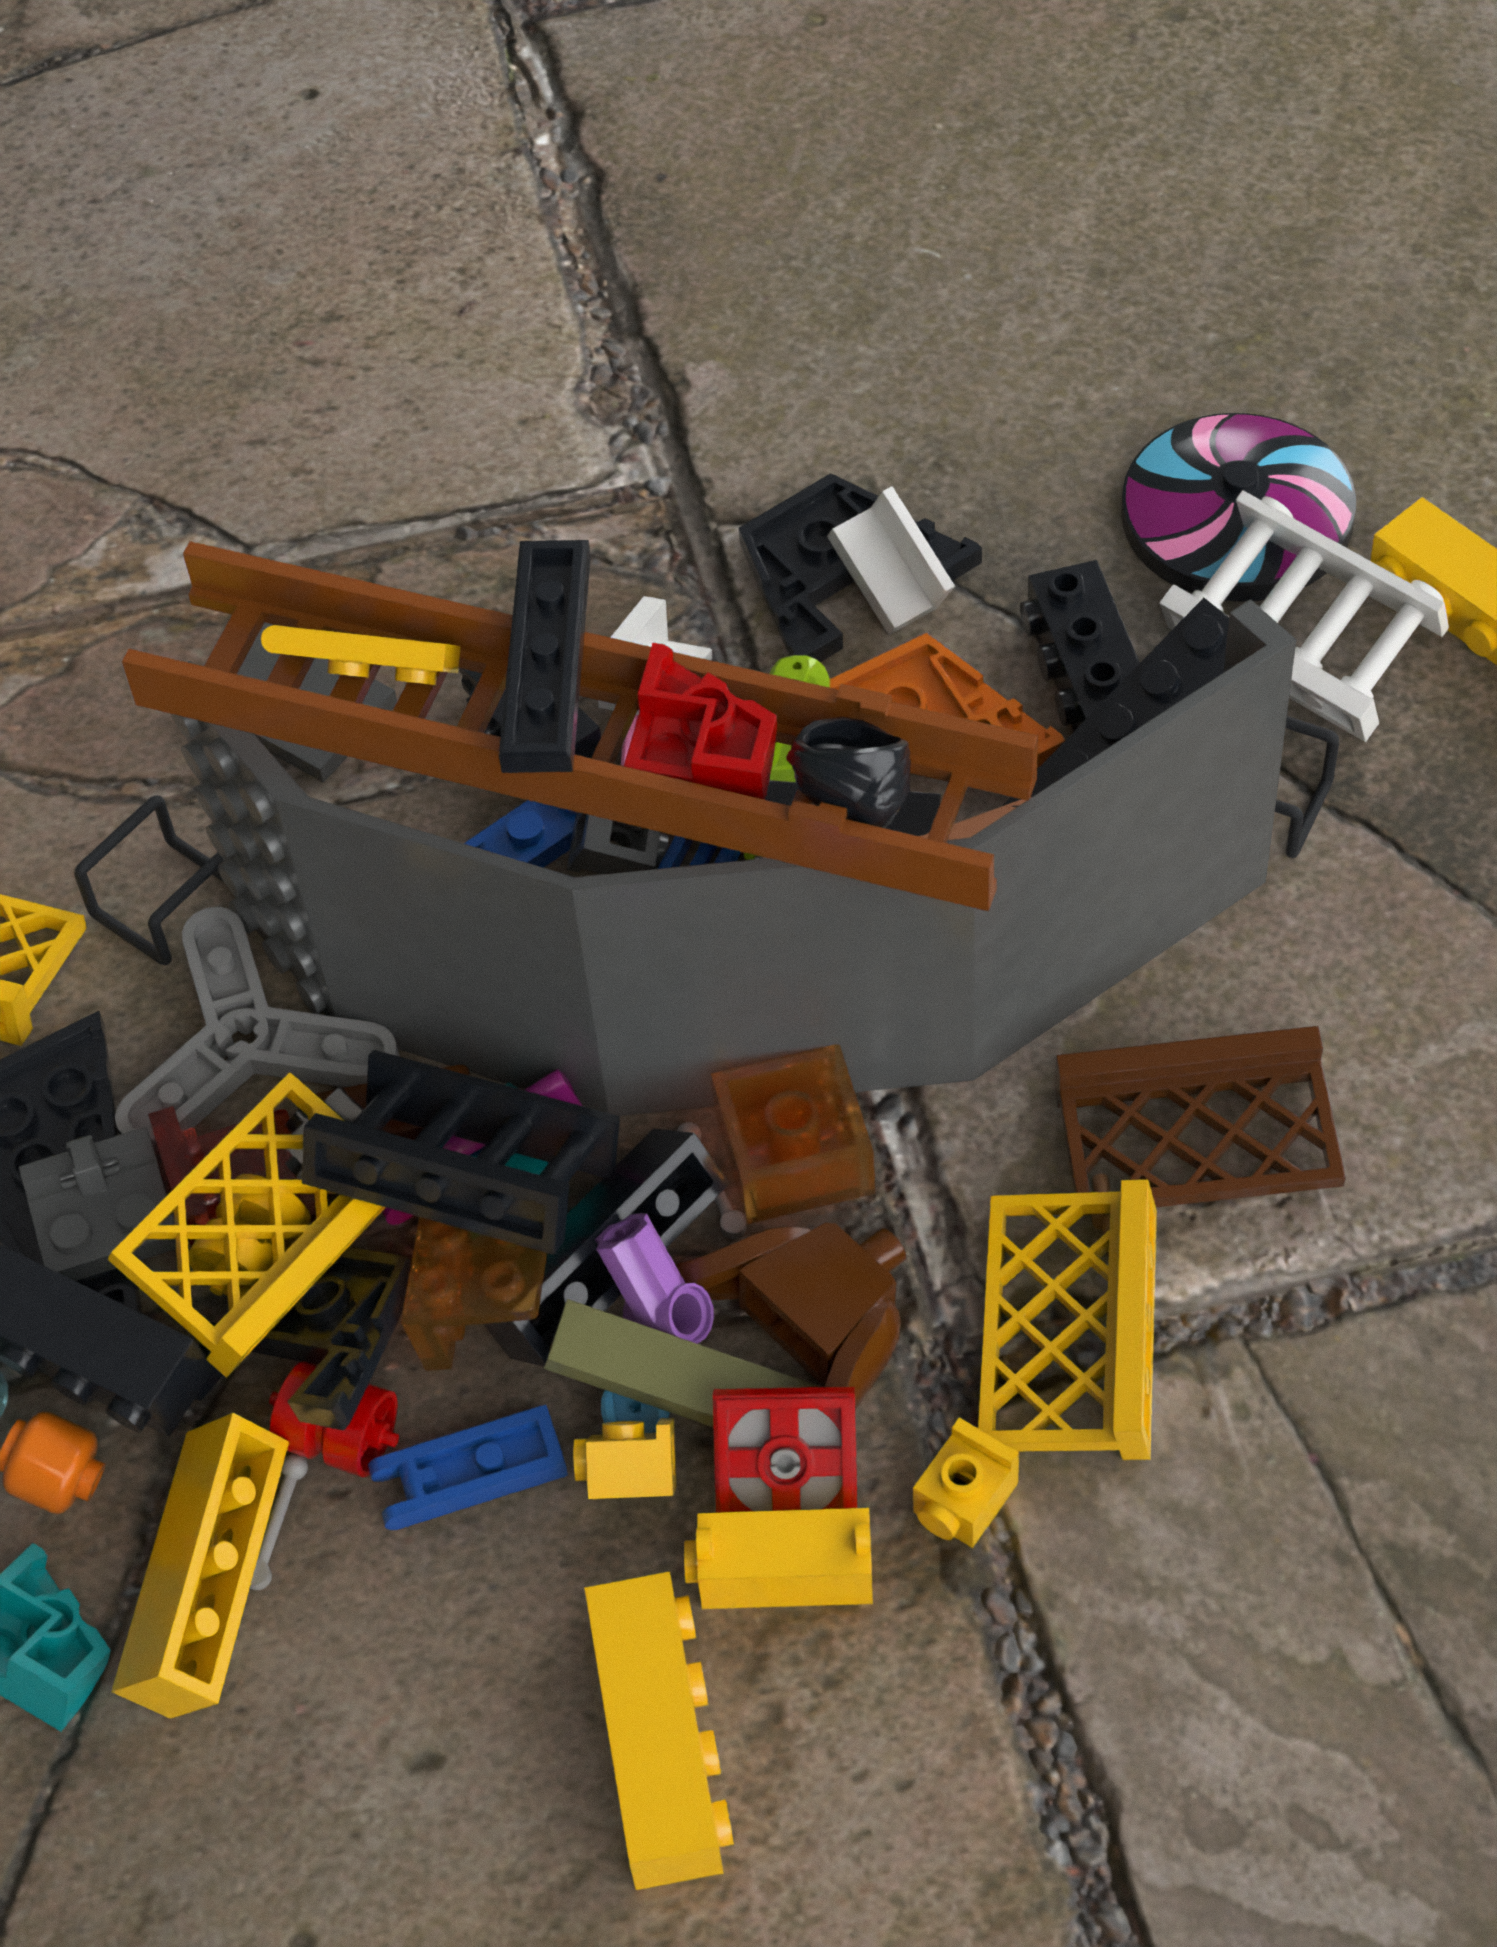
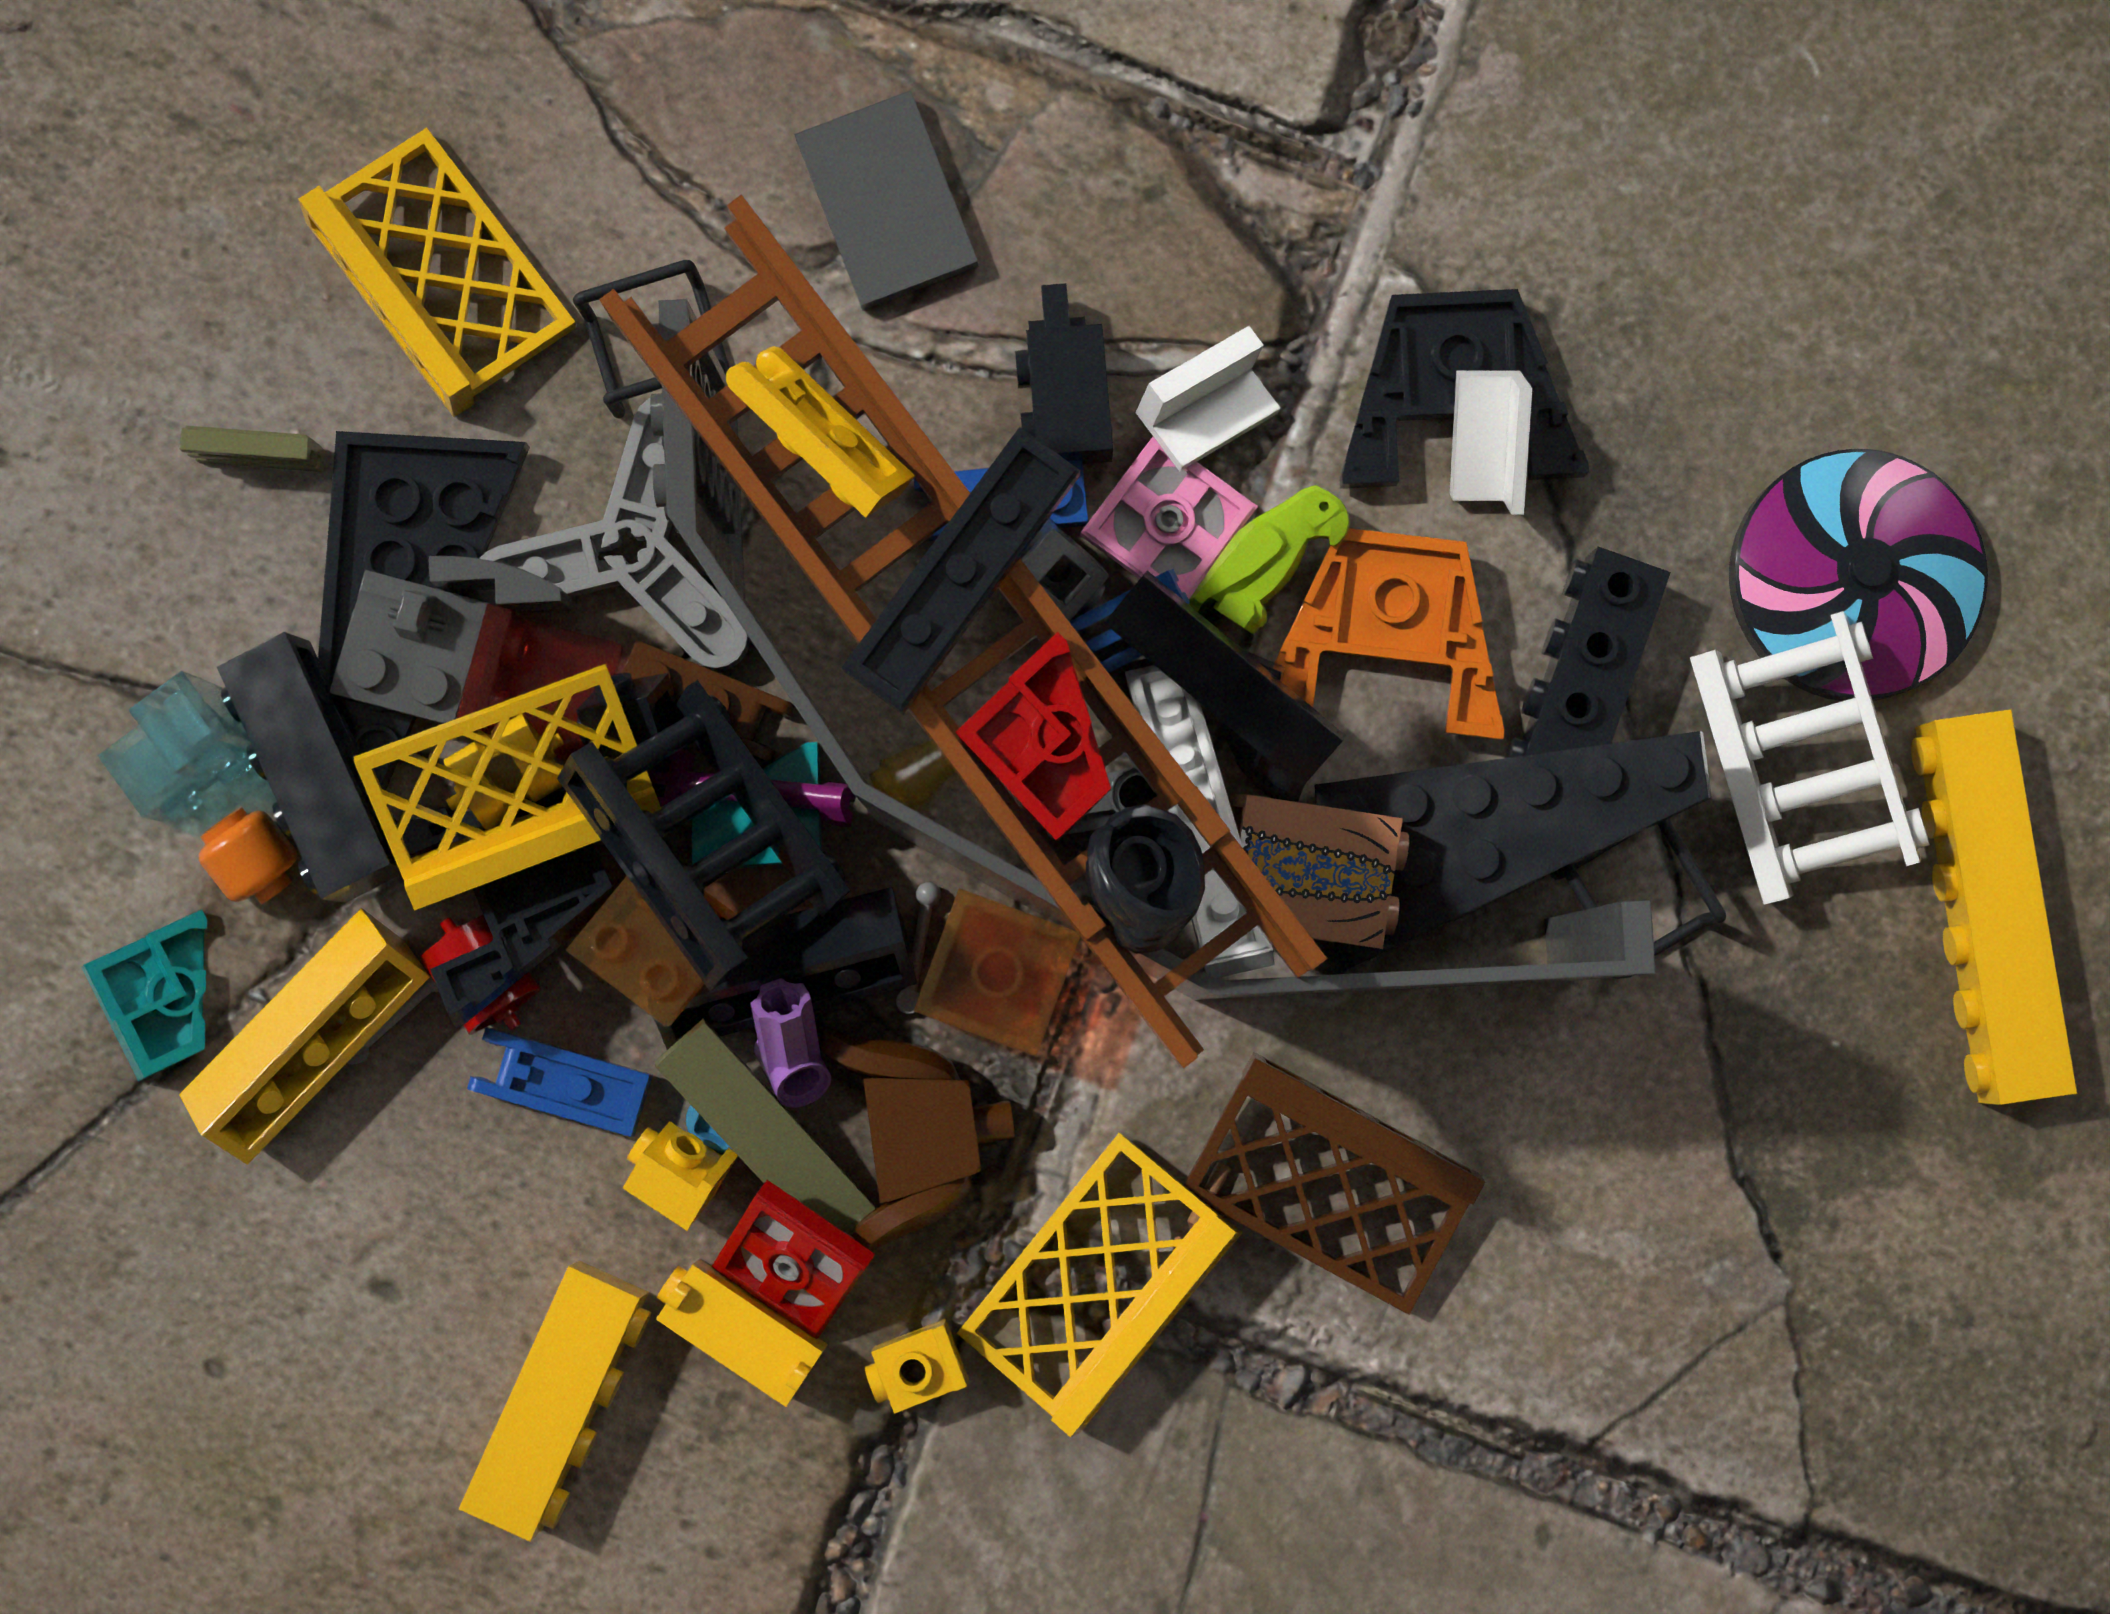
camera: 30 degrees right, 30 degrees up
(128, 1101) = (513, 586): none -> dark grey slope

